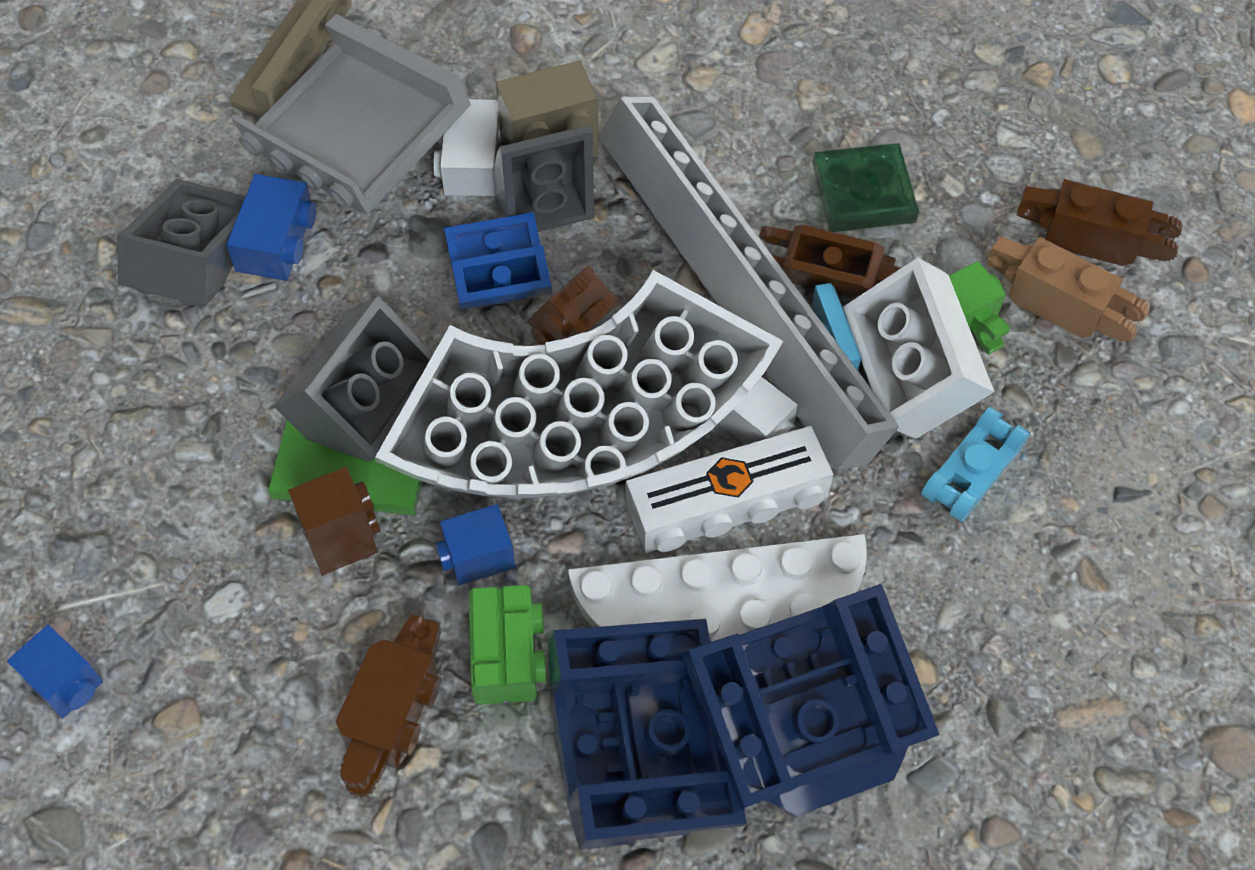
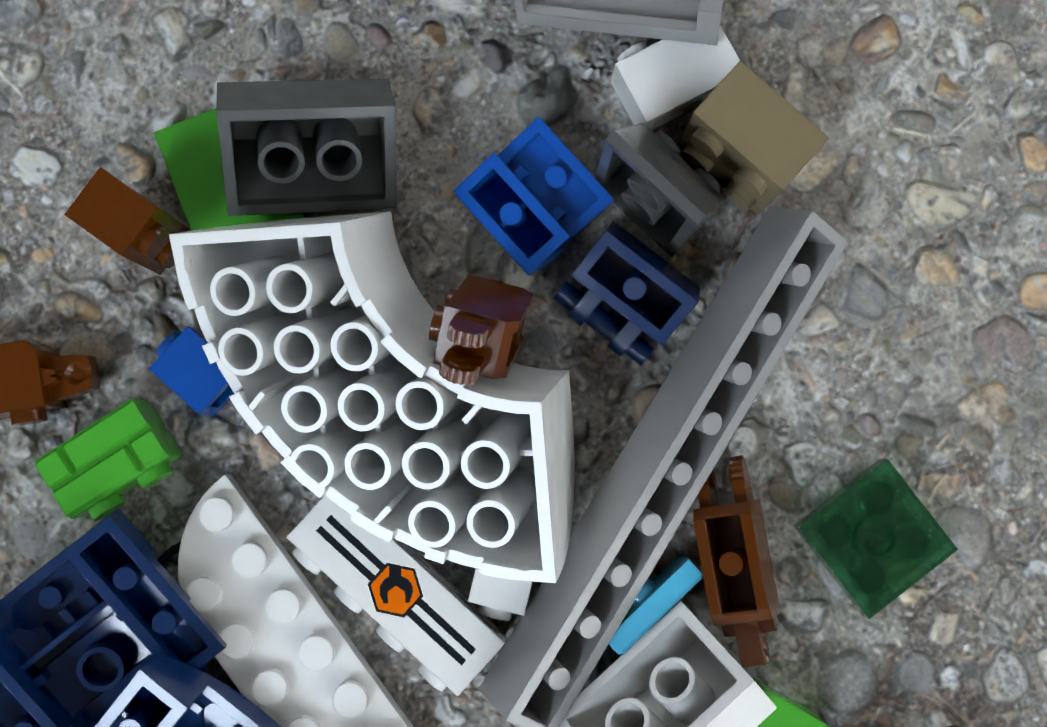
camera: 60 degrees right, 25 degrees up
(604, 229) = (636, 285): none -> dark blue brick

